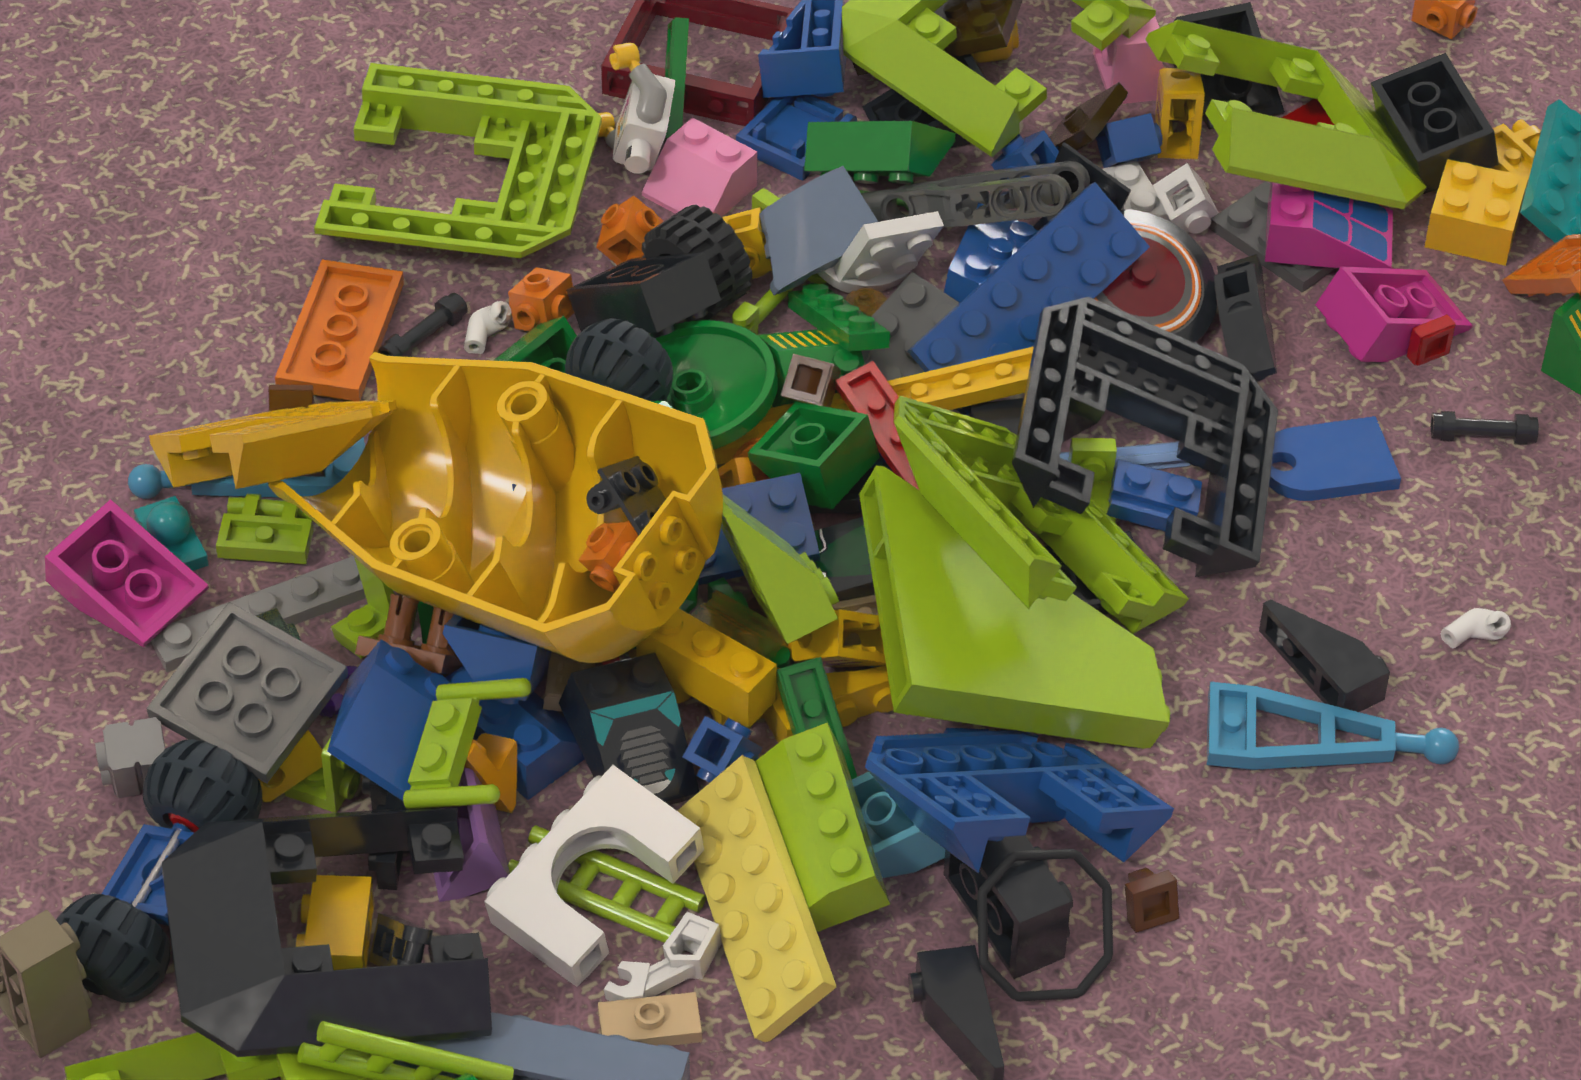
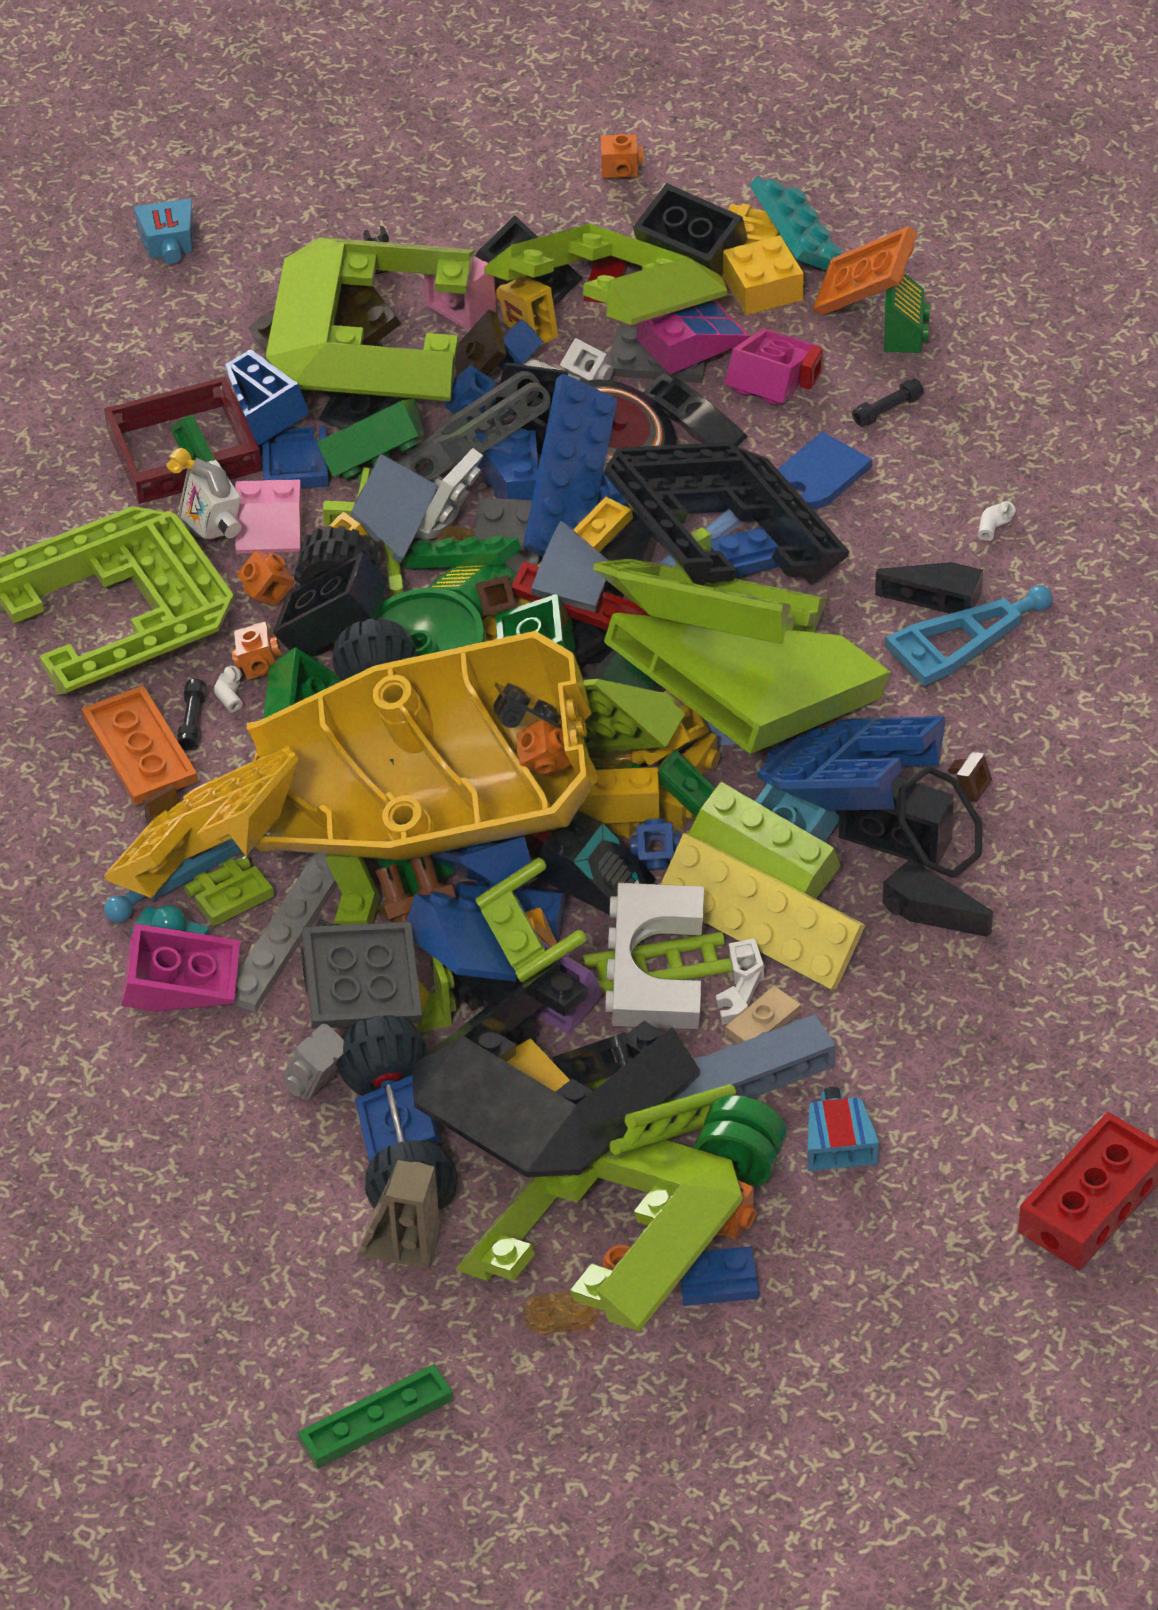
camera: 35 degrees left, 0 degrees up
(929, 377) = (569, 571): none -> sand blue slope

